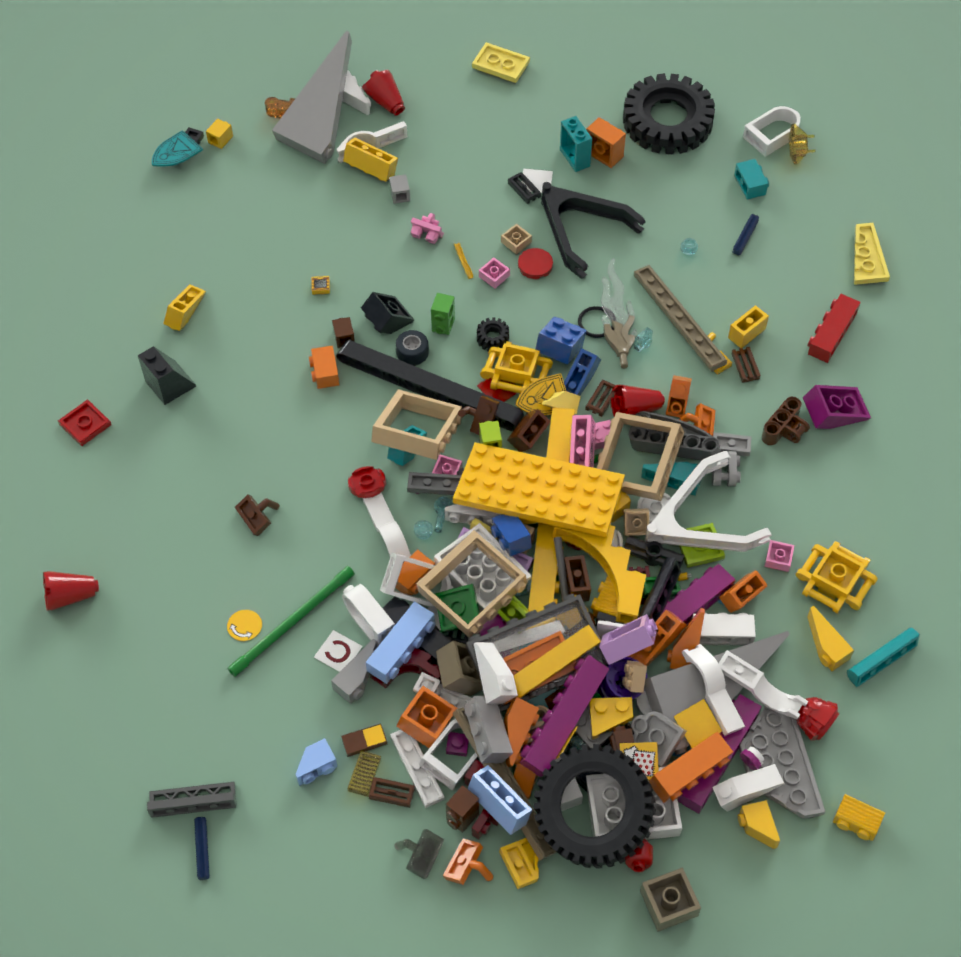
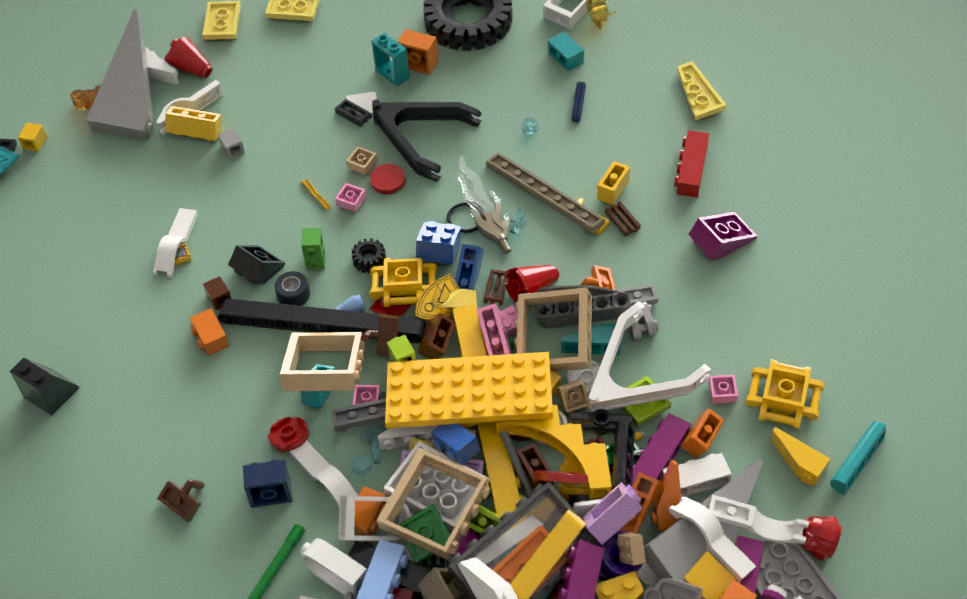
camera: 15 degrees left, 5 degrees down
(183, 307) = (43, 313): yellow slope -> none
(325, 265) = (169, 244): none -> white piece
(333, 522) = (267, 483): none -> dark blue brick
(427, 225) = (270, 170): bright pink hips -> none
(428, 59) = (221, 20): none -> light yellow plate
(463, 377) = (352, 304): none -> light blue cone
(594, 593) = (560, 476): none -> red tile
(678, 396) = (570, 265): orange slope -> none
(789, 424) = (681, 262): reddish brown piece -> none

